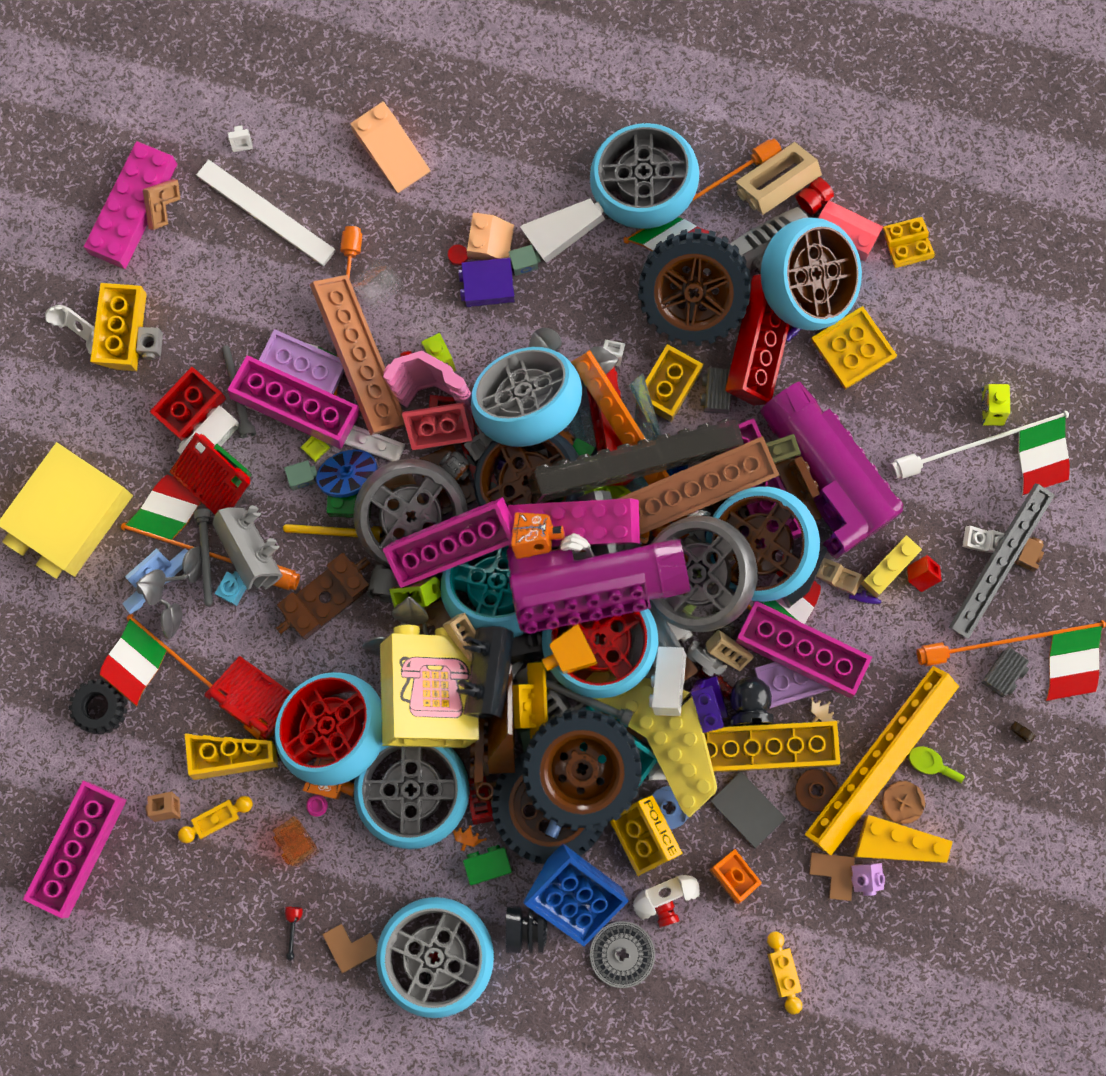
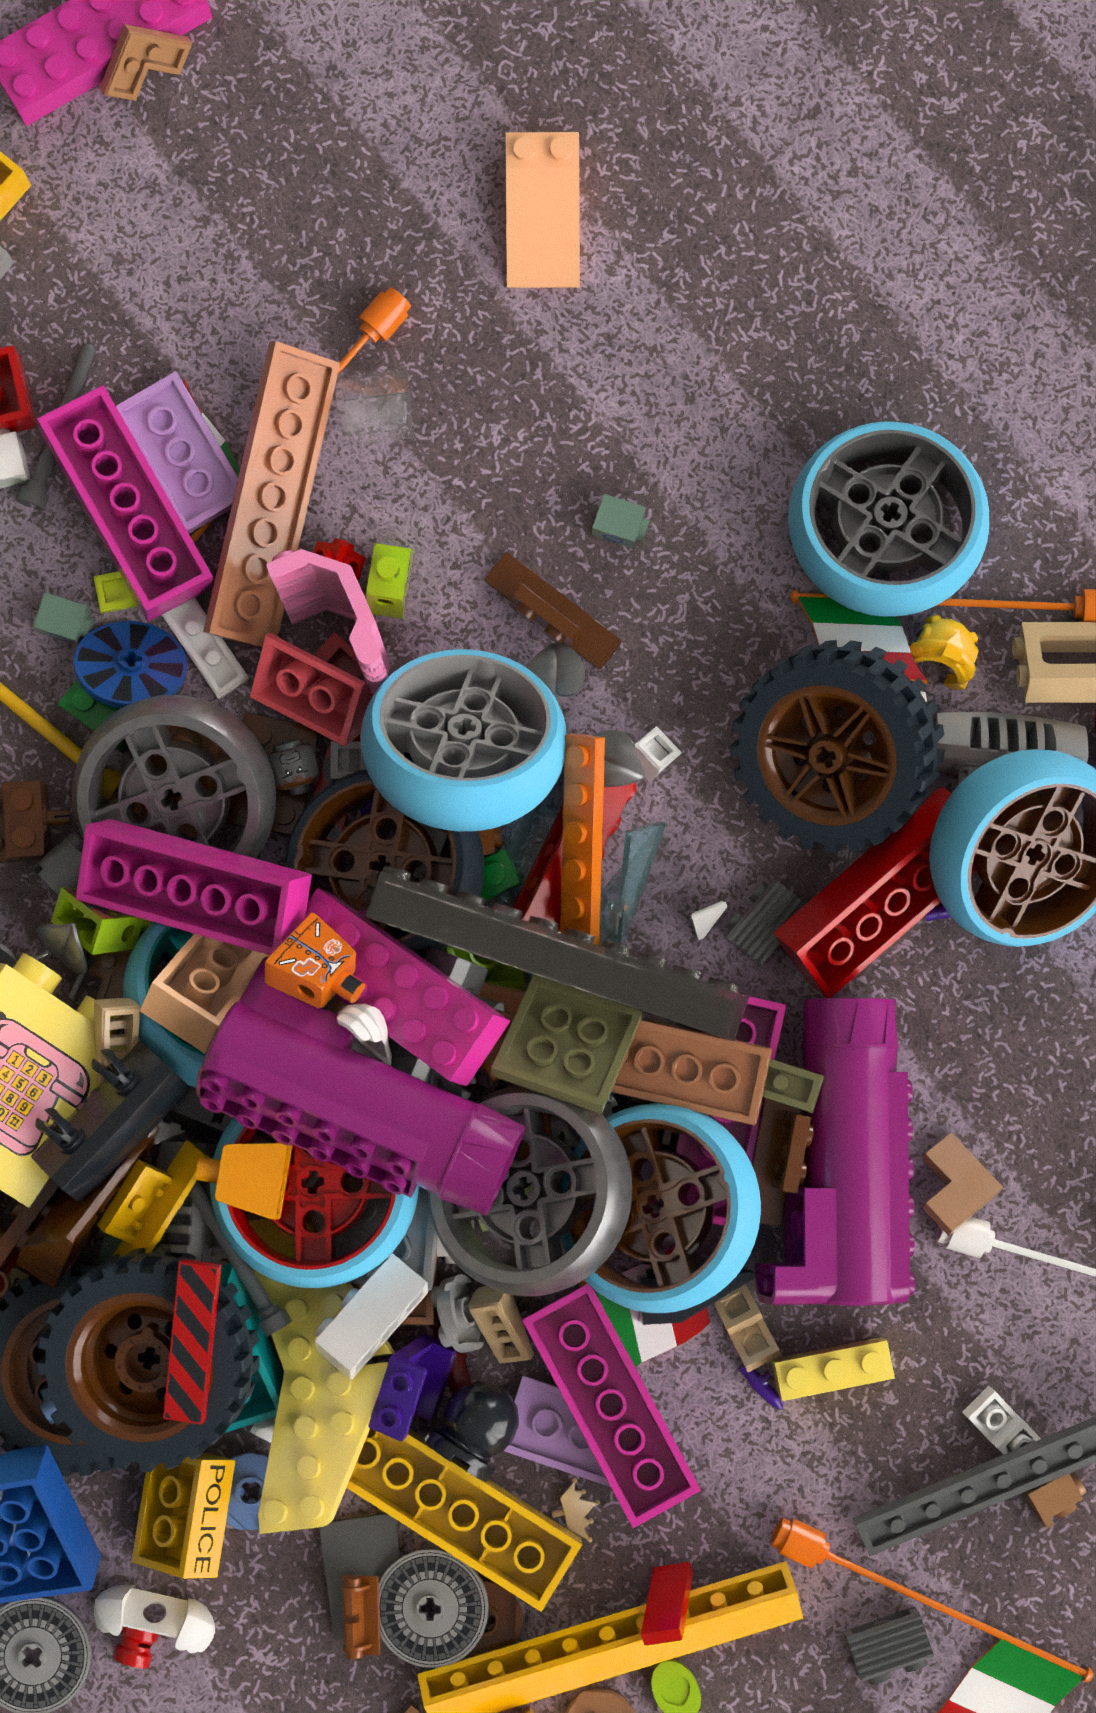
camera: 25 degrees right, 5 degrees up
(240, 139) = (329, 43): white tile -> none
(266, 213) = (290, 183): white tile -> none
(457, 255) = (528, 444): red tile -> none
(487, 282) = (540, 517): dark purple brick -> none
(488, 583) = (200, 988): none -> light nougat slope
(489, 237) = (592, 453): light nougat slope -> none
(521, 320) = (552, 610): none -> reddish brown bracket
(562, 228) = (706, 513): white slope -> none
(598, 740) = (192, 1341): none -> red tile
(670, 496) = (567, 1043): none -> olive plate
(671, 381) = (704, 861): yellow brick -> none
(689, 408) = (705, 918): none -> white slope
(712, 211) = (949, 644): none -> yellow helmet
(735, 876) = (274, 1662): orange slope -> none
(759, 826) = (361, 1615): none -> dark orange hinge
(787, 818) = (452, 1630): none -> piece
(853, 347) = (1017, 999): yellow plate -> none
(890, 442) = (967, 1182): none -> medium nougat tile
(894, 719) = (667, 1604): none -> red tile
(924, 573) = (875, 1413): red panel -> none

